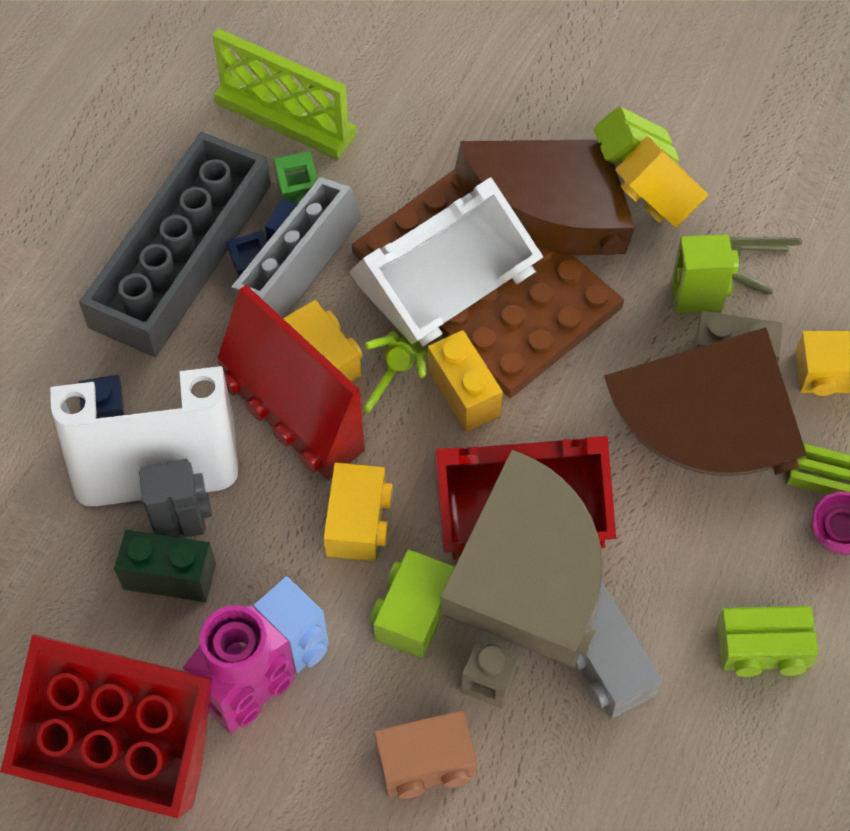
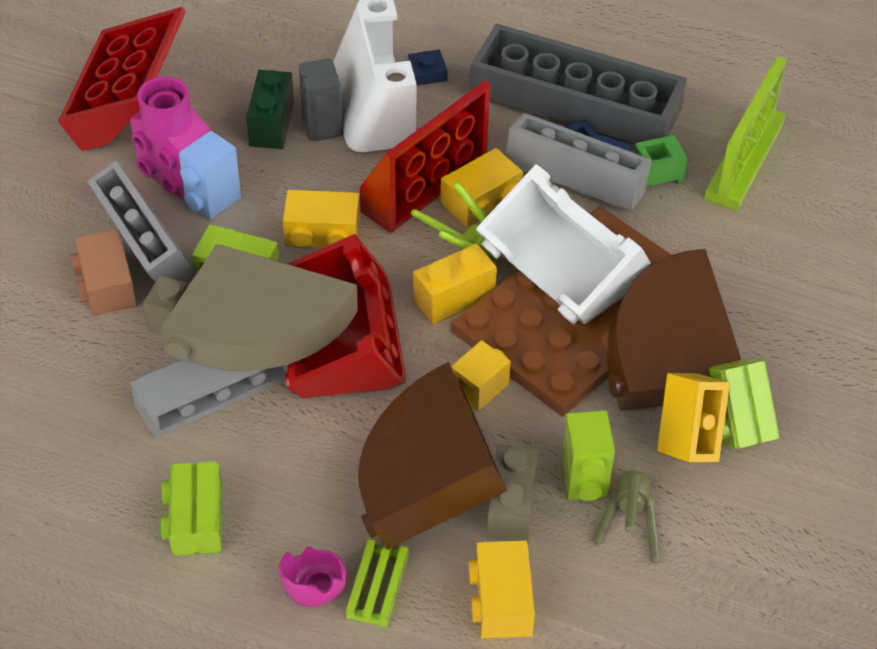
camera: 85 degrees right, 10 degrees down
(365, 708) = (140, 224): none -> light grey brick
(584, 363) = (482, 374): none -> yellow brick

